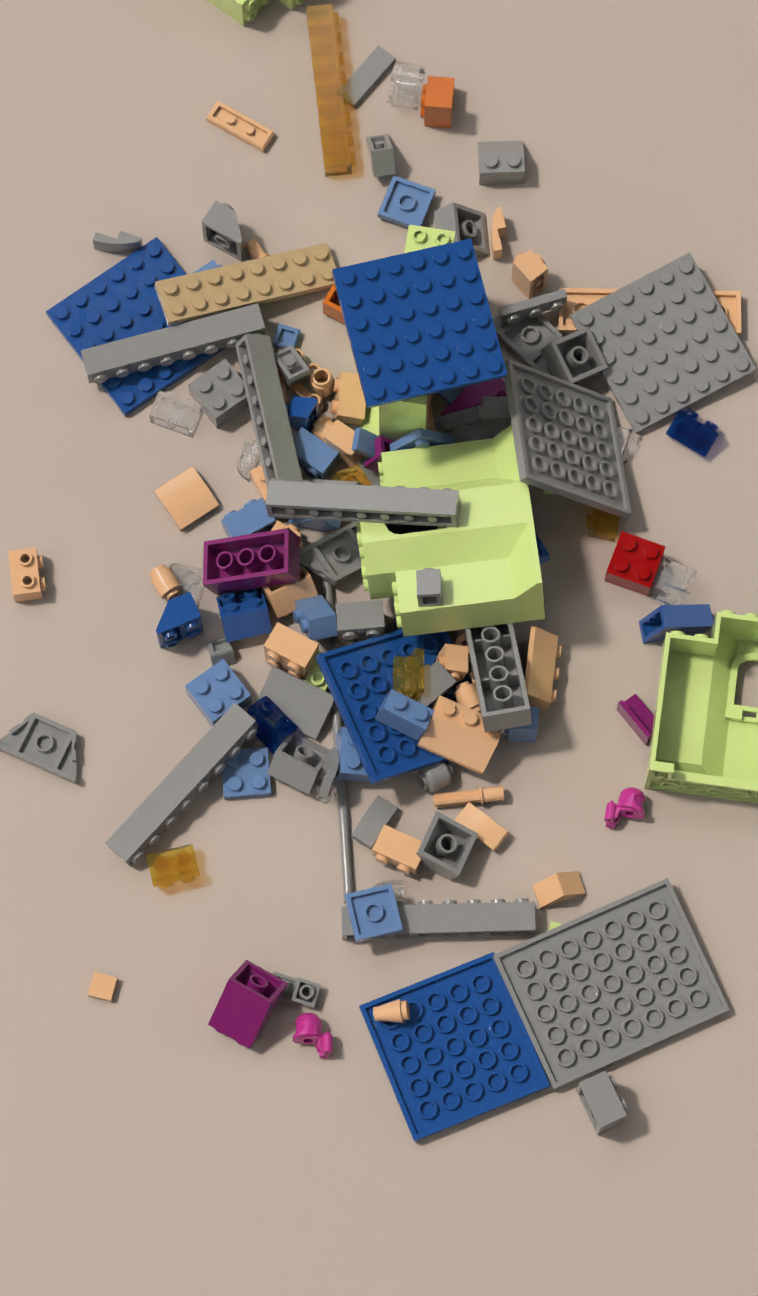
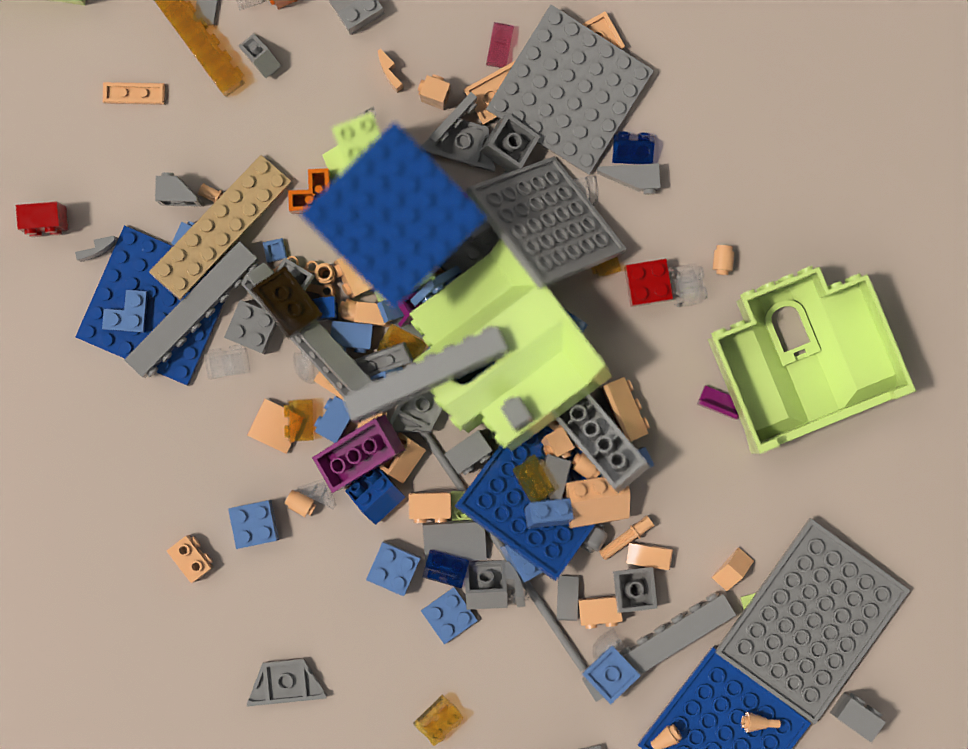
camera: 30 degrees left, 15 degrees up
(83, 185) = (41, 218): none -> red brick
(107, 576) = (253, 524): none -> medium blue brick
(109, 321) = (133, 315): none -> medium blue plate
(179, 621) = (329, 529): blue slope -> none
(182, 784) = (408, 656): light grey brick -> none
(213, 502) = (299, 420): none -> clear yellow bracket
(219, 650) = (374, 533): light grey slope -> none
(269, 377) = (286, 302): none -> dark brown plate
(315, 618) = (433, 469): medium blue brick -> none
(406, 202) = (303, 85): medium blue plate -> none
(466, 224) = (360, 85): light grey slope -> none
(491, 1047) = (754, 722): none -> light nougat cone
(619, 268) = (499, 45): none -> clear pink slope
(629, 805) = (749, 475): dark pink piece -> none
(667, 618) = (706, 312): blue slope -> none
(682, 459) = (637, 177): none -> light grey slope
(723, 583) = (723, 259): none -> light nougat brick

